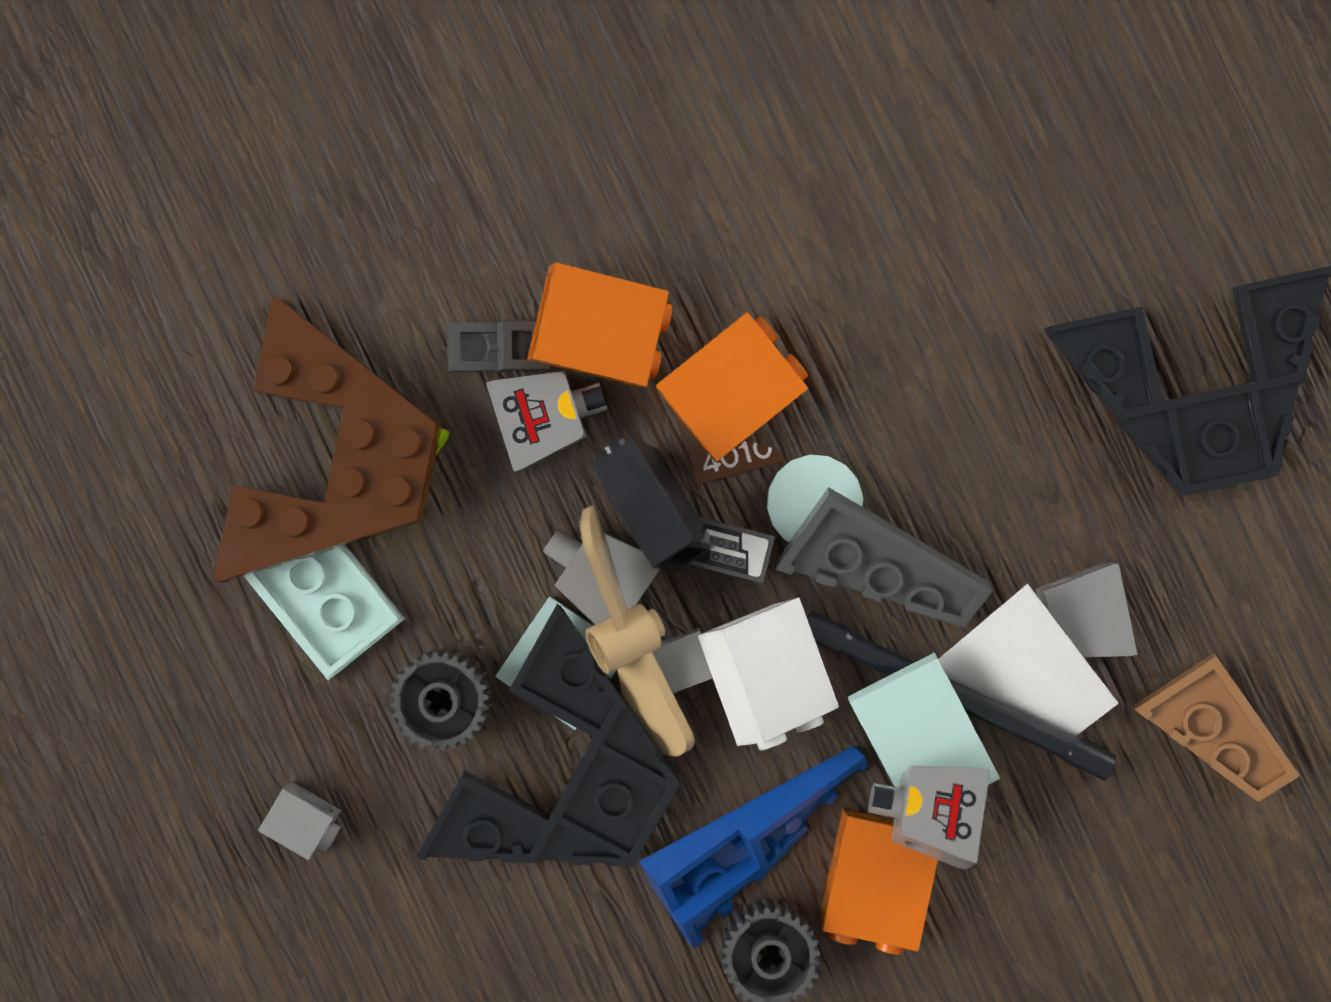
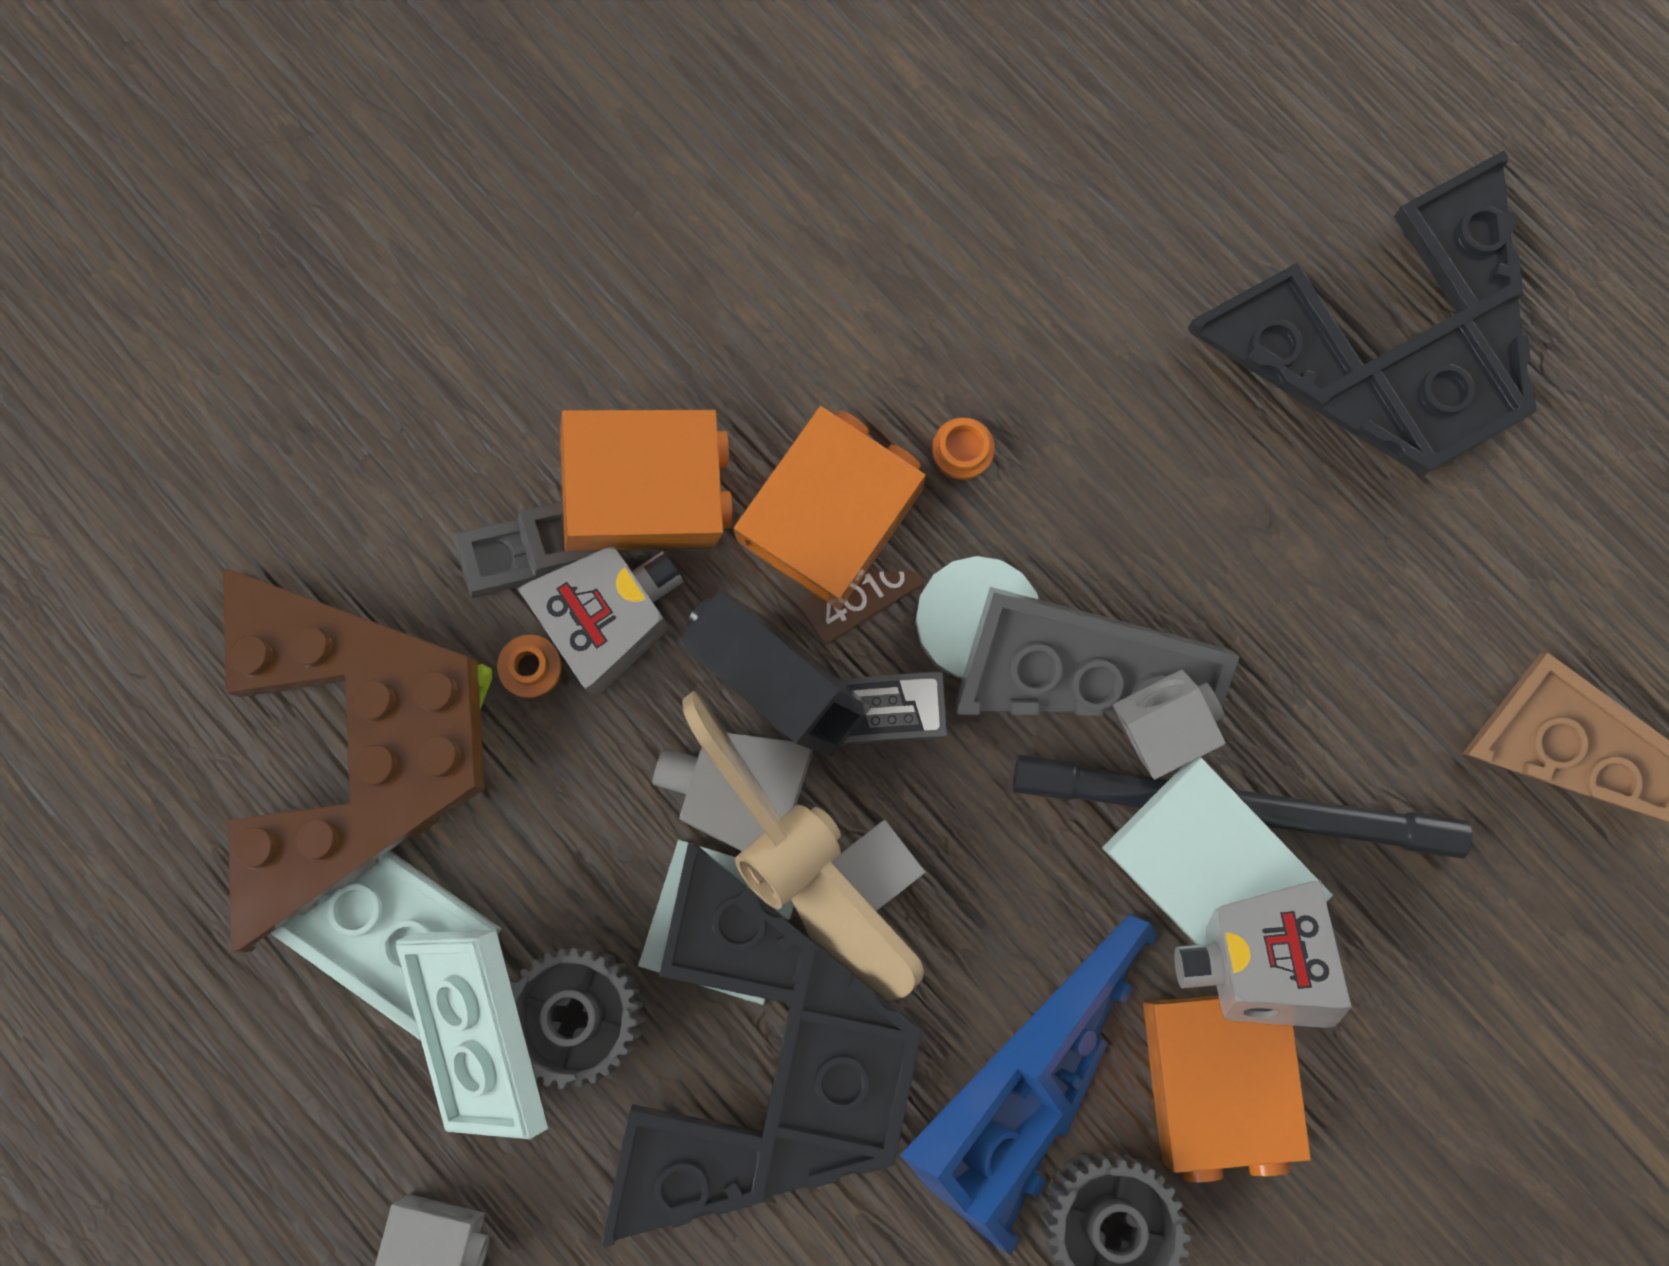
camera: 15 degrees left, 10 degrees down
(367, 690) = (471, 1033): none -> light aqua tile
(488, 448) = (547, 674): none -> orange plate
(769, 674) = (991, 849): white brick -> none
(844, 370) = (963, 448): none -> orange plate
(926, 624) = (1171, 722): none -> light grey brick
(1030, 666) = (1322, 735): white sticker -> none
(1092, 610) = (1361, 655): light grey torso -> none

